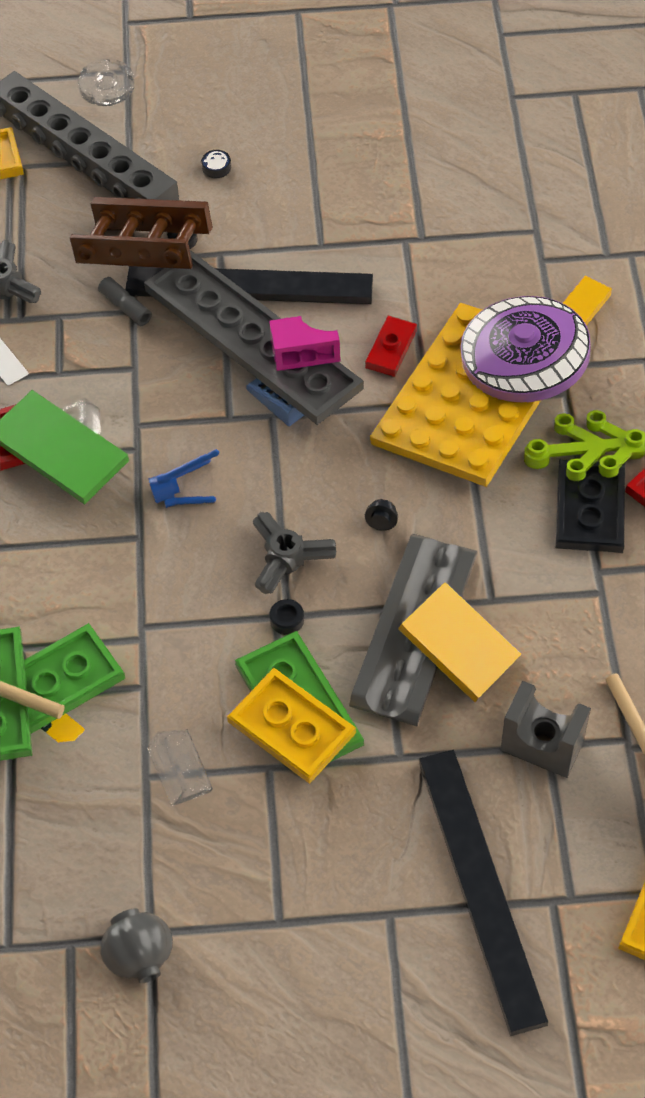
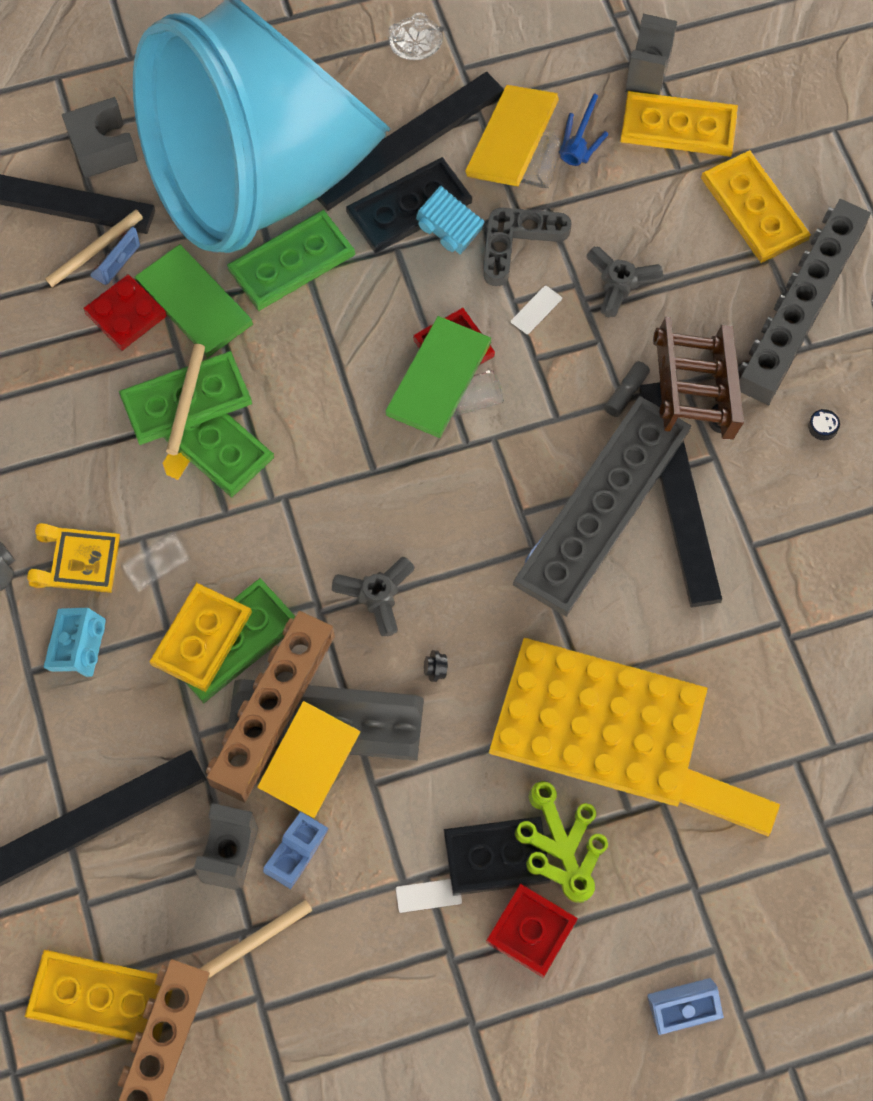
camera: 75 degrees right, 10 degrees up
(155, 842) = (80, 559): none -> yellow flag
(166, 485) = (427, 477): blue plant -> none
(258, 860) = (75, 641): none -> medium azure bracket
(286, 616) = (317, 607): black tile -> none
(301, 345) = (585, 538): dark pink arch -> none
(389, 642) = (240, 780): none -> medium nougat brick
(391, 346) = (640, 635): red plate -> none
(525, 349) = (650, 756): dish -> none
(551, 679) = (296, 850): none -> medium blue slope
(618, 575) = (426, 896): none -> white sticker

